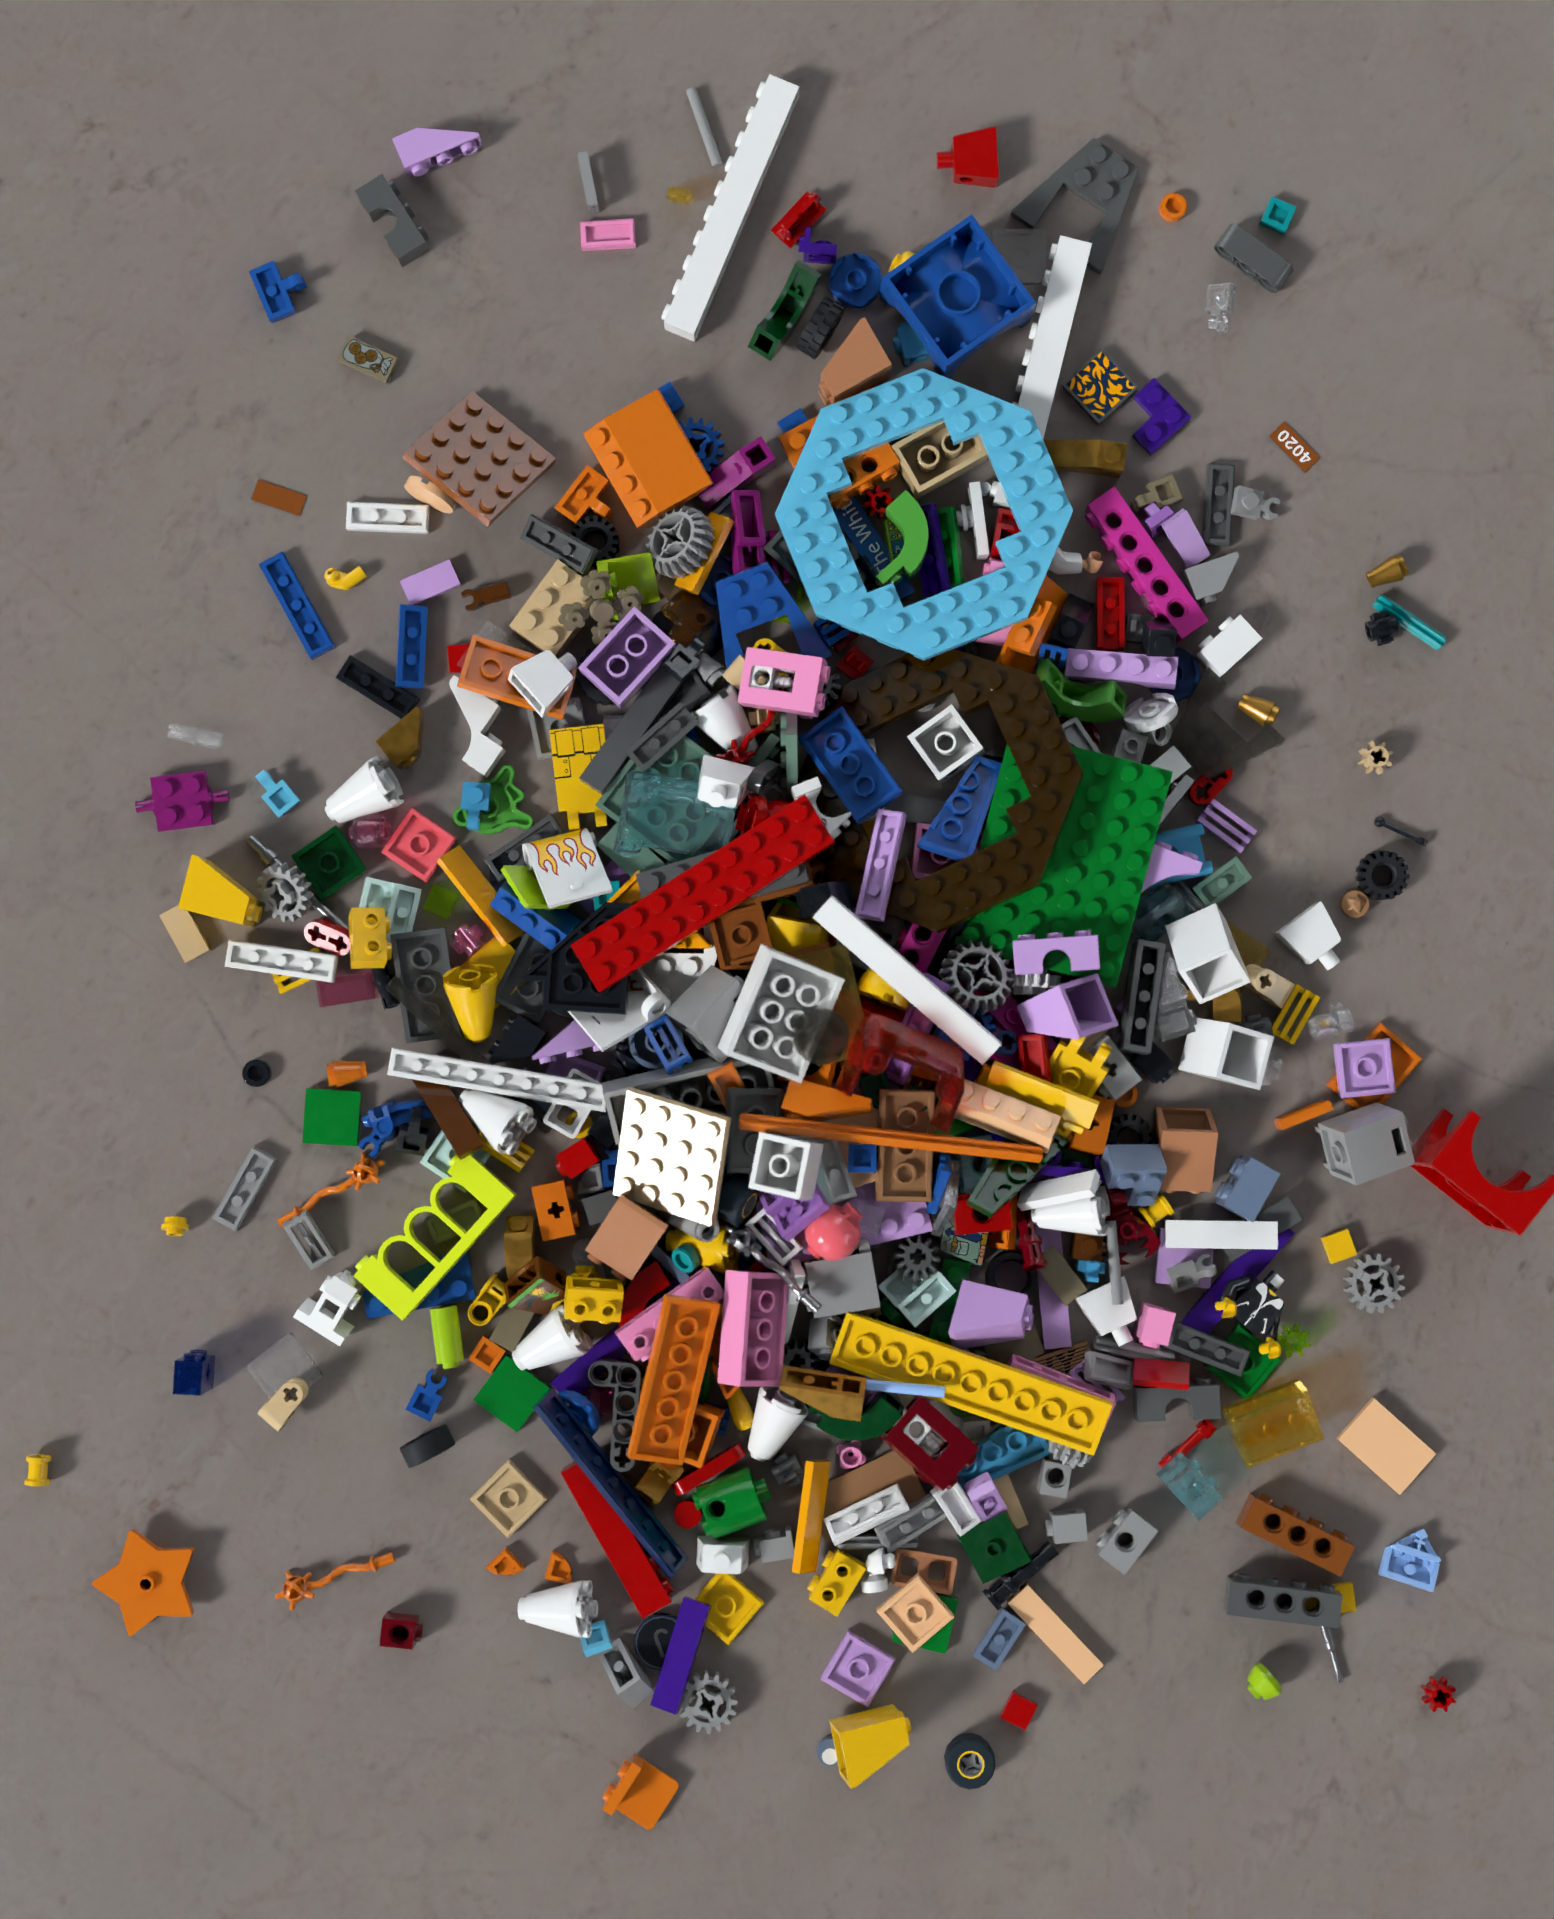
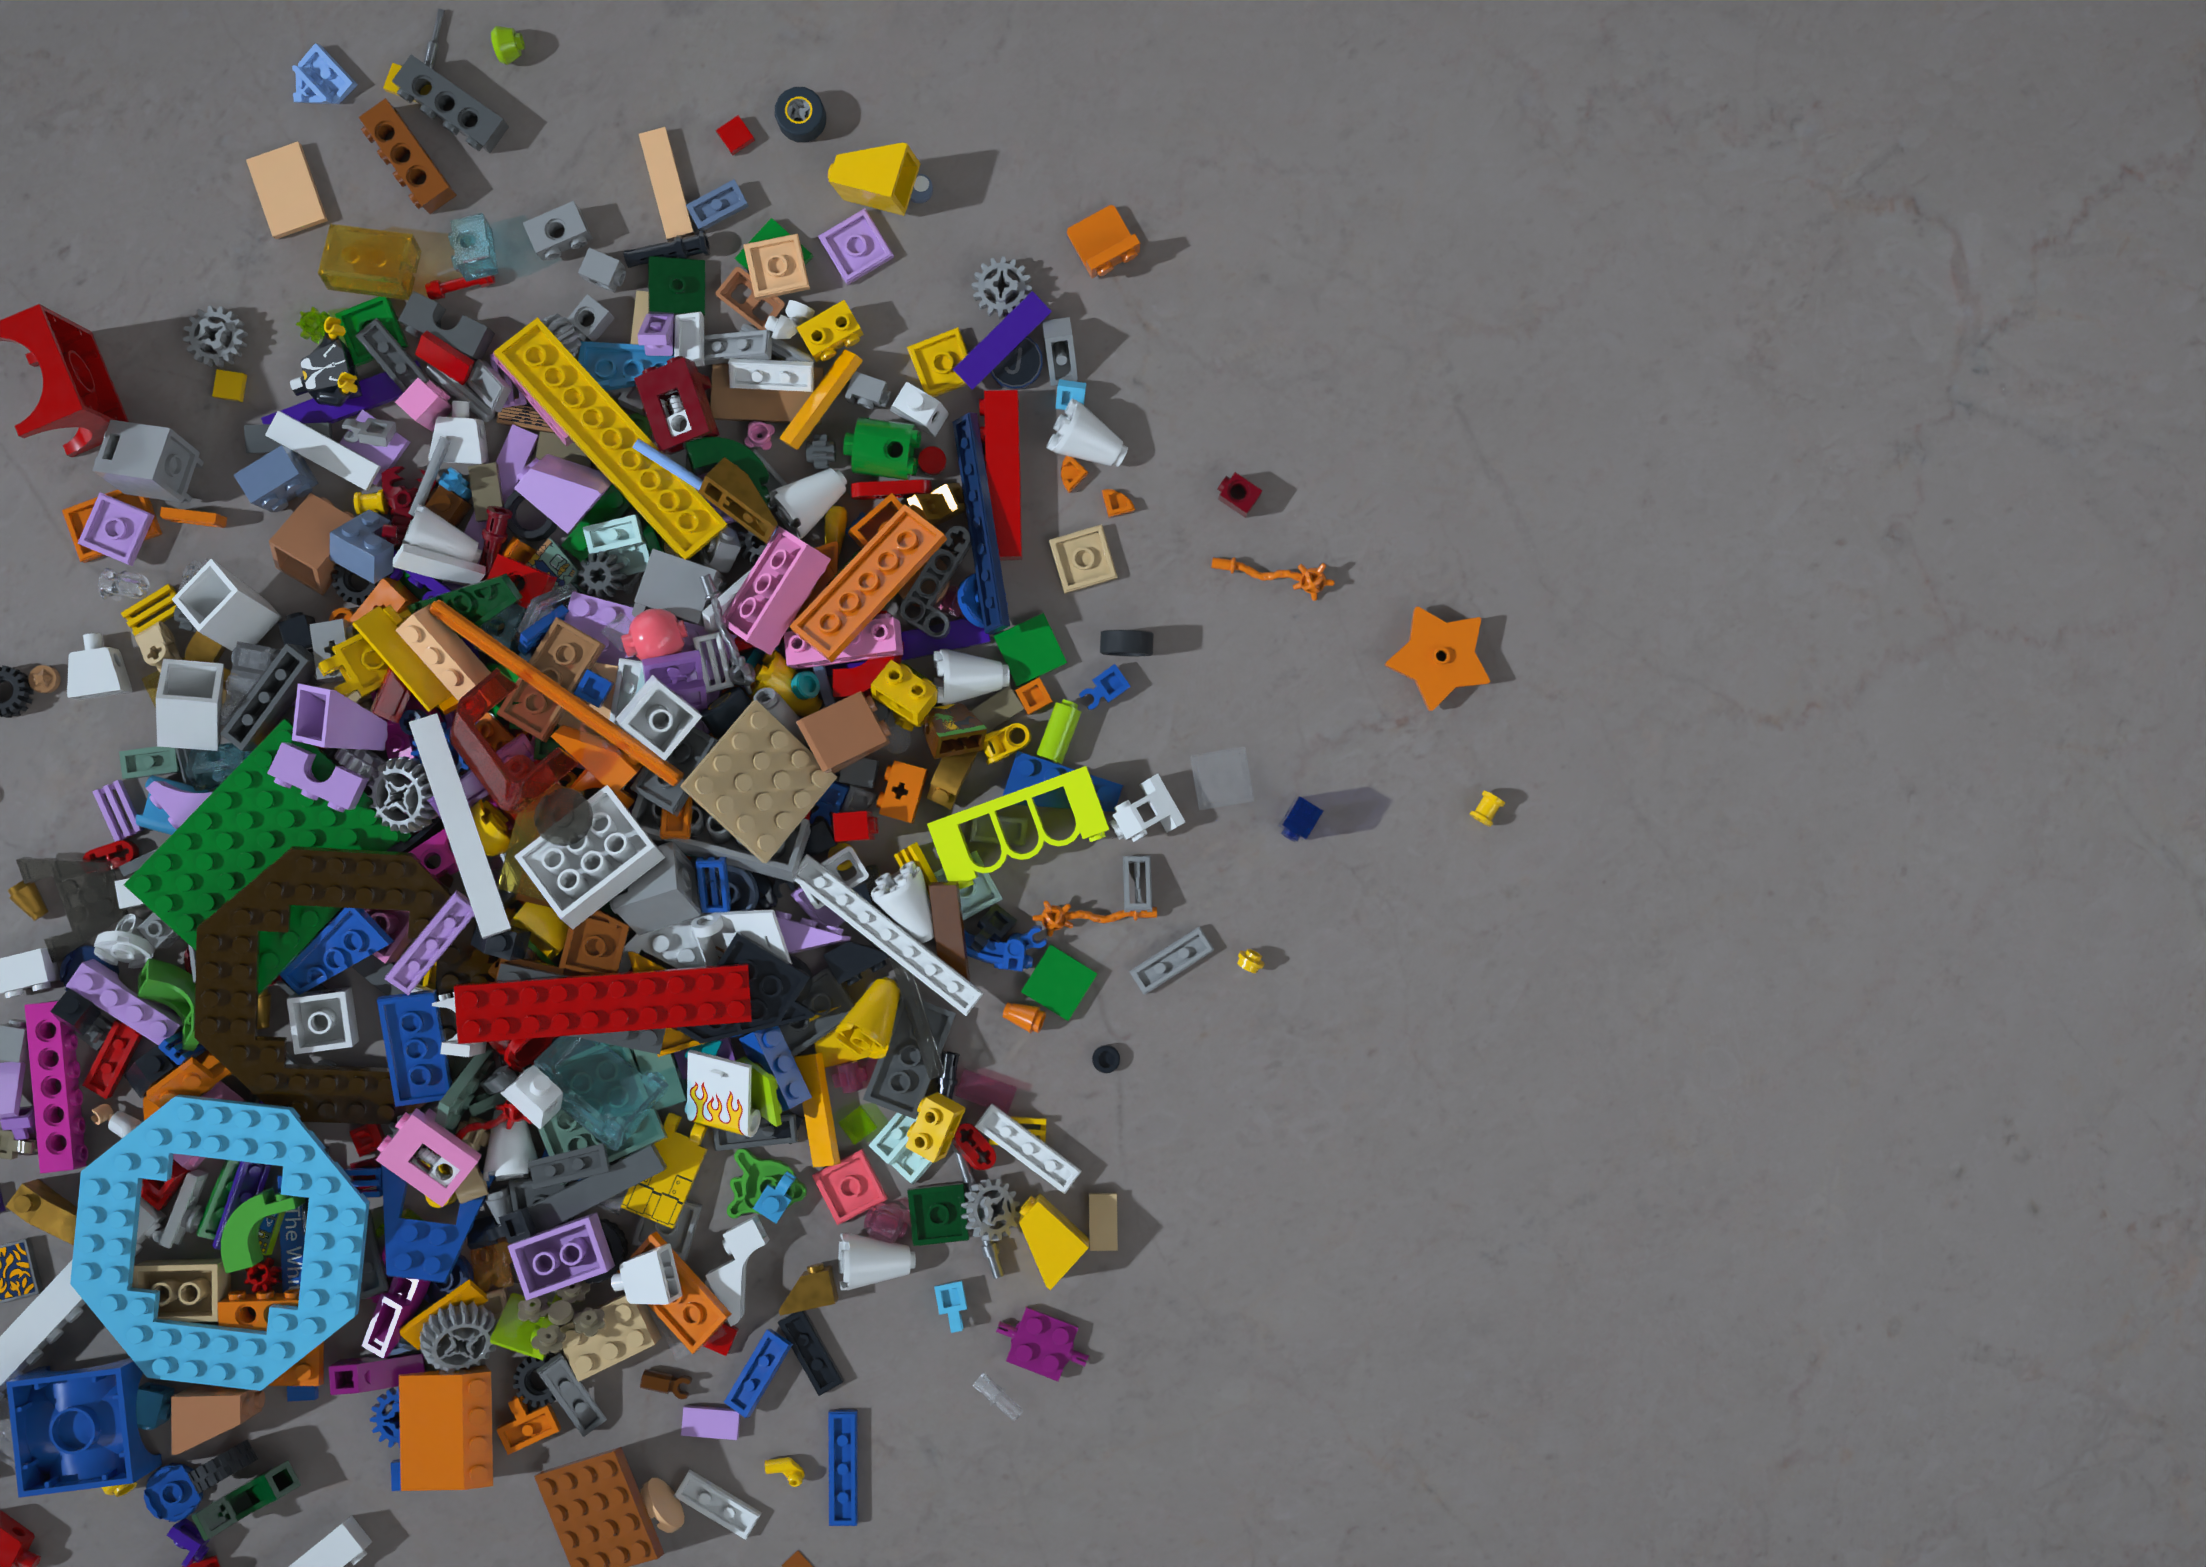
camera: 145 degrees left, 0 degrees up
(282, 1405) = (1238, 749): tan piece -> none

